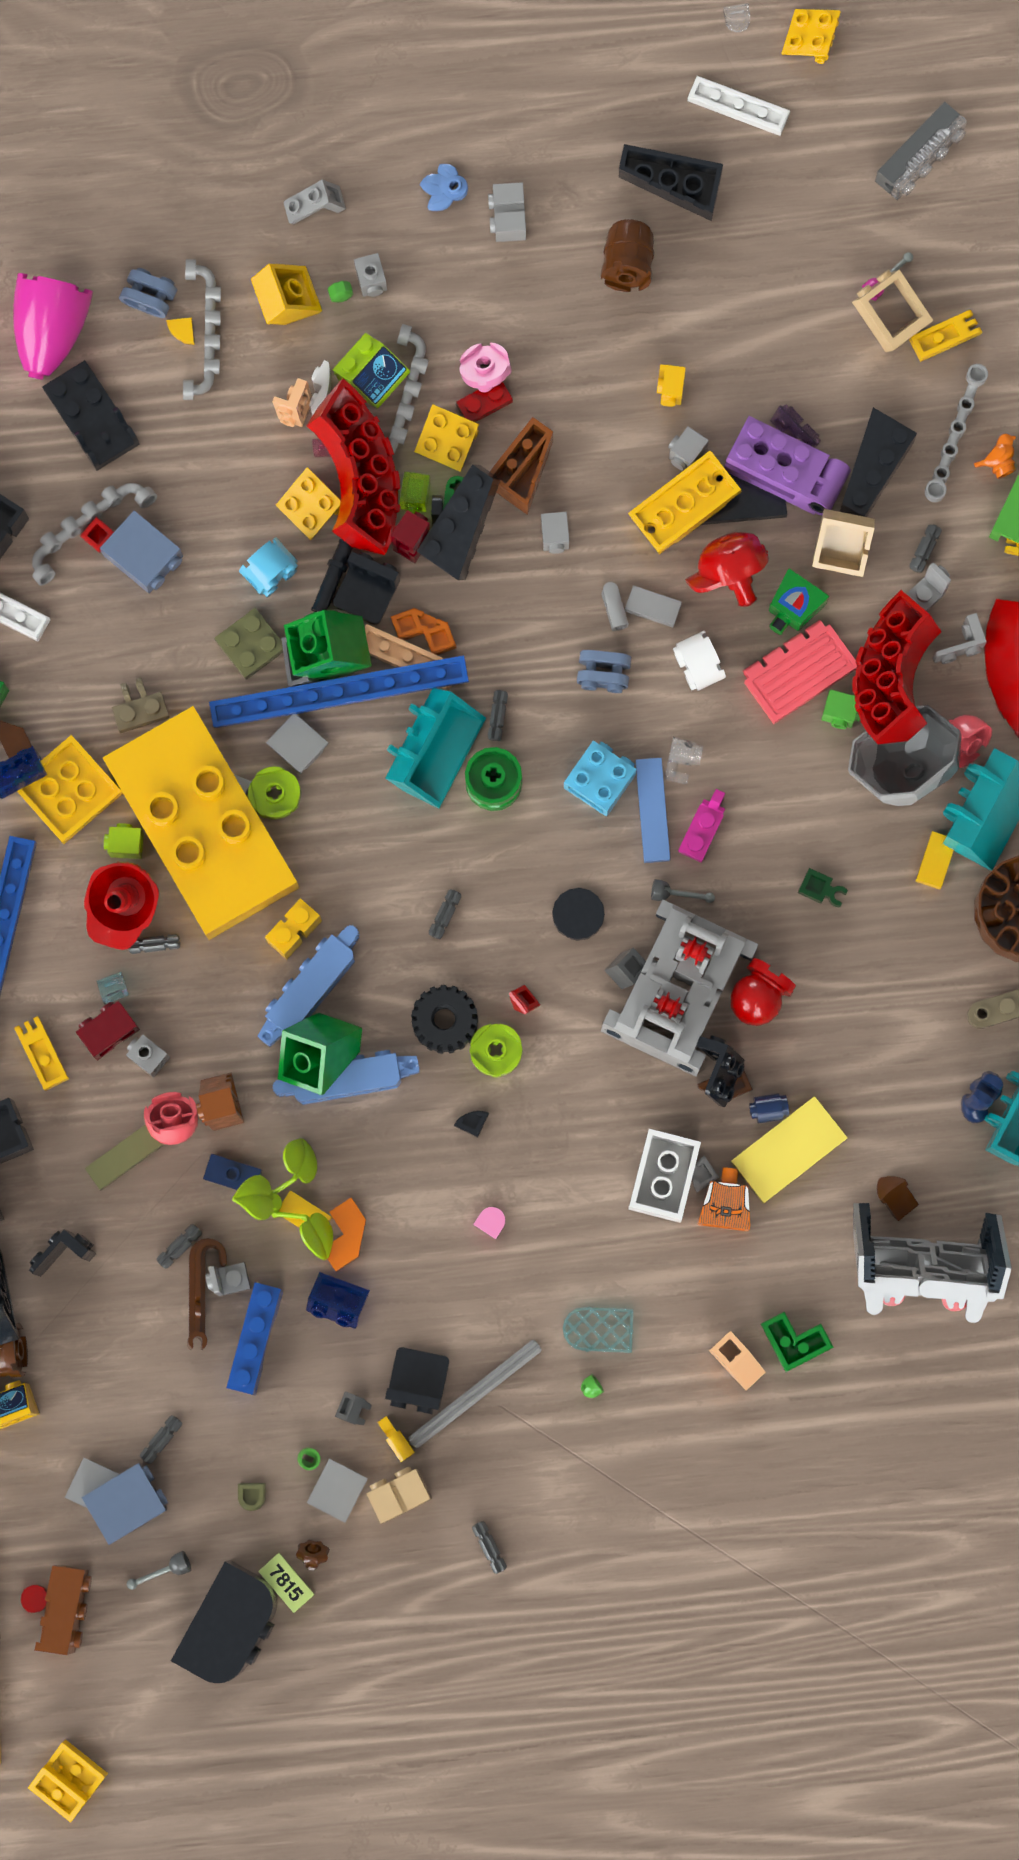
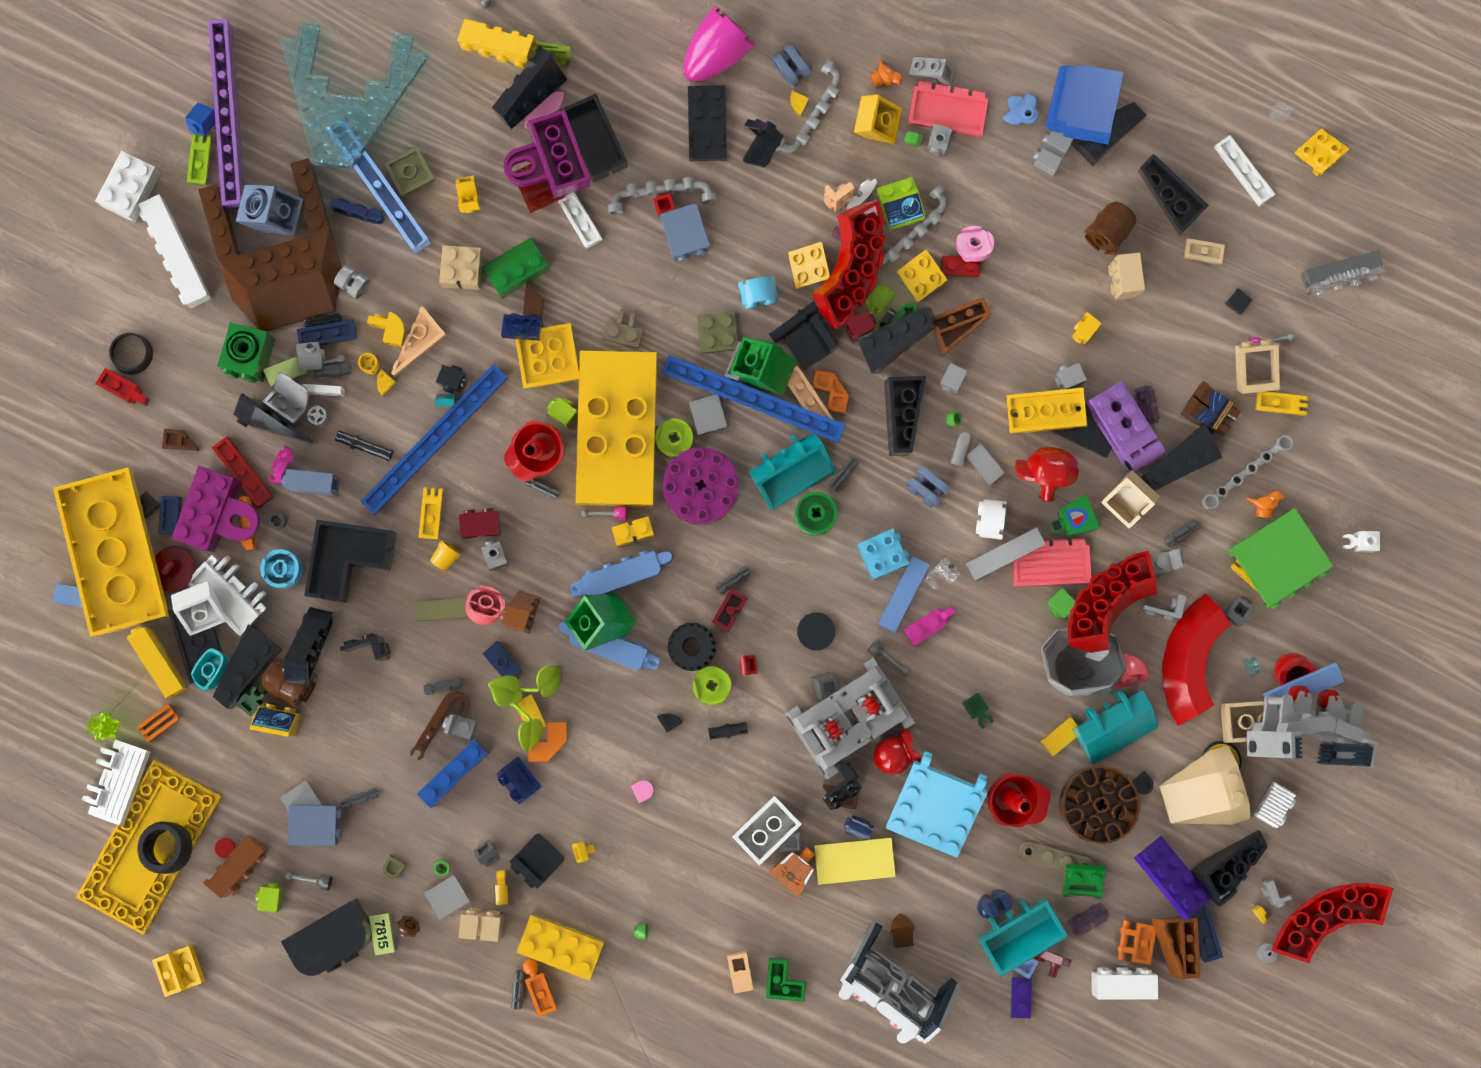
camera: 25 degrees right, 5 degrees up
(88, 1091) = (445, 555): none -> yellow piece
(112, 987) = (499, 499): clear light blue tile -> none
(124, 1622) = (269, 897): none -> lime brick
(172, 395) = (764, 144): none -> black bracket
(264, 241) = (885, 76): none -> orange animal
(264, 918) = (620, 513): none -> hinge
(346, 803) = (695, 467): none -> magenta brick
(366, 232) = (952, 110): none -> coral hinge
(462, 961) = (733, 602): none -> dark red brick
(463, 1336) = (581, 851): none -> yellow tile
(474, 1394) = (568, 890): light grey axle -> none
(508, 1462) = (560, 946): none -> yellow brick
(511, 135) = (1084, 102): none -> piece
(513, 1529) = (539, 989): none -> orange plate
(521, 603) = (903, 403): none -> black wedge
(547, 1090) = (728, 730): none -> black pin
(553, 160) = (1124, 121): none -> black wedge
(585, 576) = (954, 418): none -> bright green hinge
(601, 1320) = (686, 911): clear light blue window -> none
(680, 298) = (1126, 276): none -> tan piece
(740, 692) = (1005, 554): none -> light grey slope
(750, 220) = (1204, 251): none -> tan plate
(825, 253) = (1238, 301): none -> black tile
(844, 1026) = (937, 807): none -> medium azure plate
(869, 387) = (1210, 408): none -> hips
(932, 961) = (1017, 800): none -> red piece

